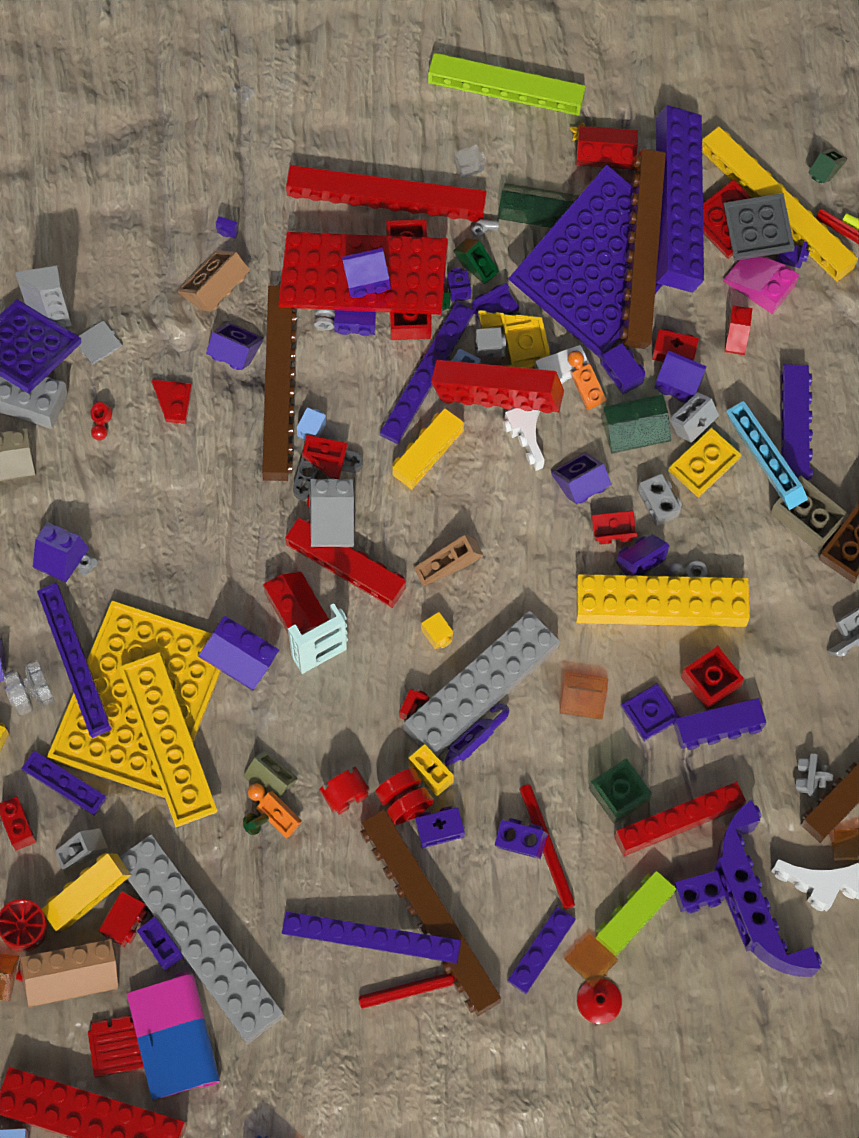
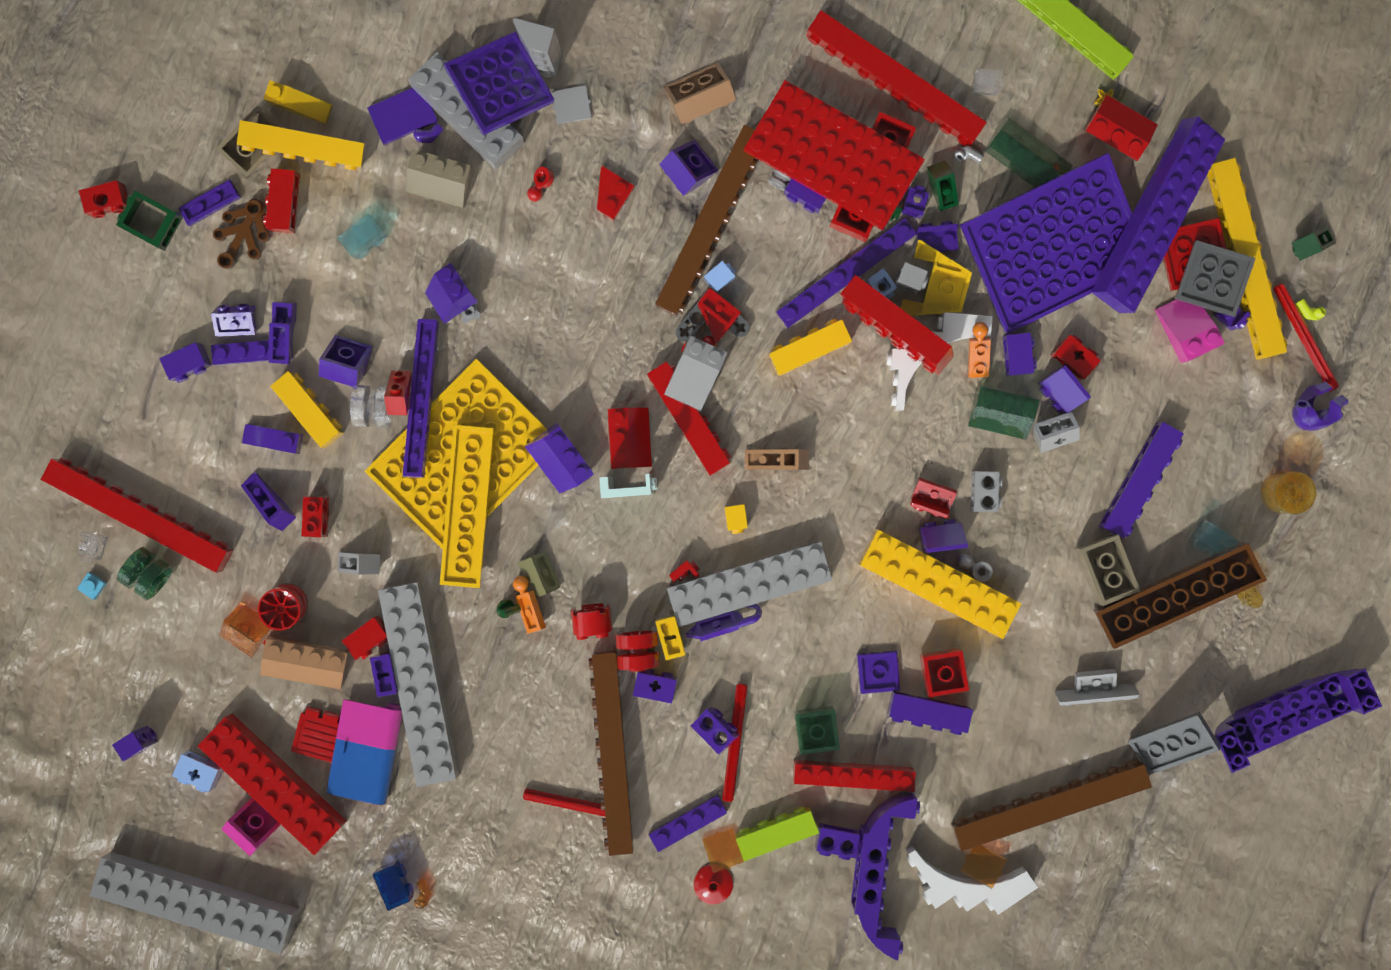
camera: 30 degrees right, 20 degrees up
(50, 662) = (398, 392): none -> red brick
(64, 783) = (368, 499): dark purple plate -> none
(86, 891) = (344, 605): yellow brick -> none
(226, 227) = (735, 46): dark purple plate -> none
(366, 273) = (832, 164): slope -> none
(371, 937) = (555, 752): dark purple plate -> none
(582, 478) = (928, 438): dark purple slope -> none
(584, 695) = (831, 630): clear orange slope -> none
(643, 249) = (1098, 250): reddish brown brick -> none
(704, 462) = (1043, 476): yellow plate -> none
(738, 330) = (1141, 366): slope -> none
(767, 455) = (1098, 503): medium azure brick -> none
(812, 766) = (986, 784): light grey hips -> none

